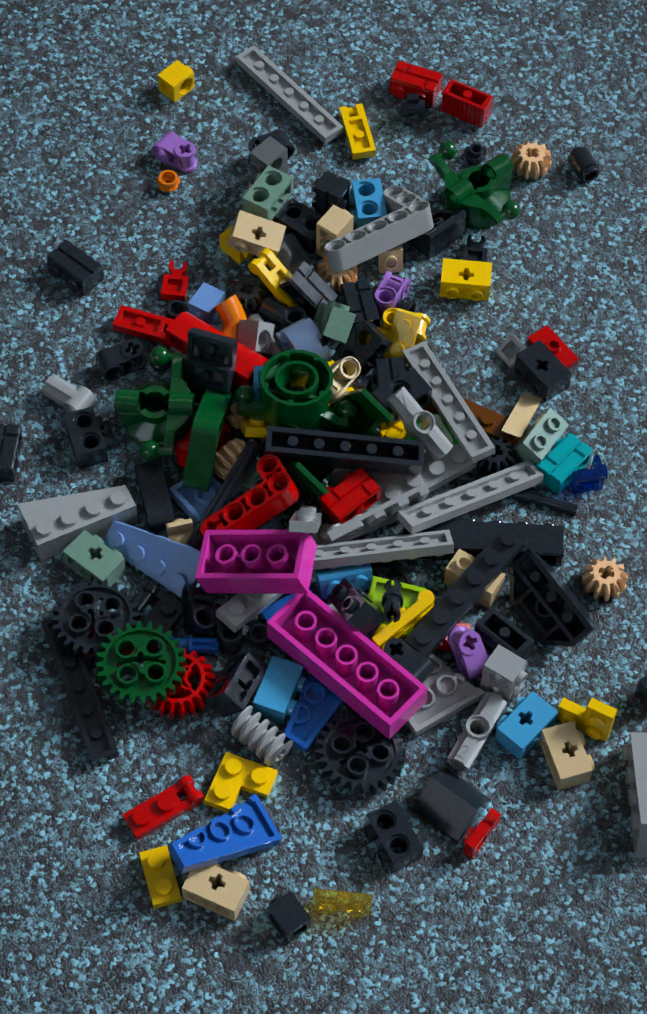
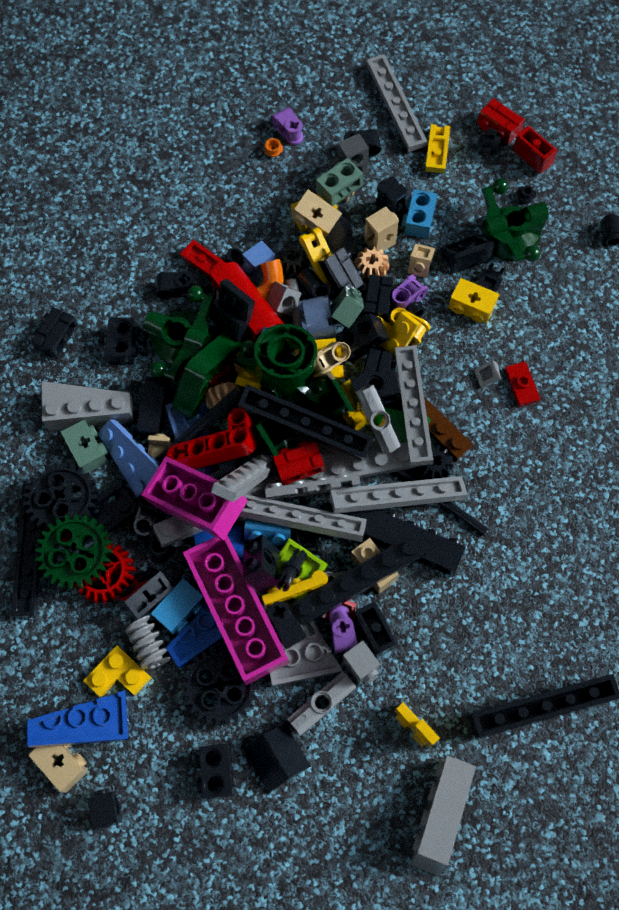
camera: 25 degrees right, 10 degrees up
(68, 395) = (123, 303): light grey piece -> none
(75, 268) = (172, 198): black brick -> none
(160, 877) = (17, 740): yellow plate -> none
(163, 808) = (49, 674): red plate -> none
(175, 284) = (243, 235): red plate -> none
(176, 81) = (312, 67): yellow brick -> none
(200, 645) = (129, 543): blue axle -> none
(301, 222) = (357, 215): black brick -> none
(333, 901) = (160, 820): clear yellow plate -> none
(361, 383) = (352, 367): black plate -> none
(406, 219) = (442, 238): light grey beam -> none
(475, 838) = (282, 797): red plate -> none
(521, 414) = (472, 433): tan piece -> none
(524, 725) = (378, 712): dark azure brick -> none
(531, 160) = (569, 213): light nougat gear -> none
(540, 436) = (478, 459): sand green brick -> none
(542, 371) = (507, 390): black brick -> none
(547, 603) = (426, 610): black wedge -> none
(559, 746) = (381, 738): tan brick -> none
(564, 458) = (490, 487): teal brick -> none
(589, 479) = (504, 509): clear blue bracket -> none
(614, 580) = (480, 595): light nougat gear -> none

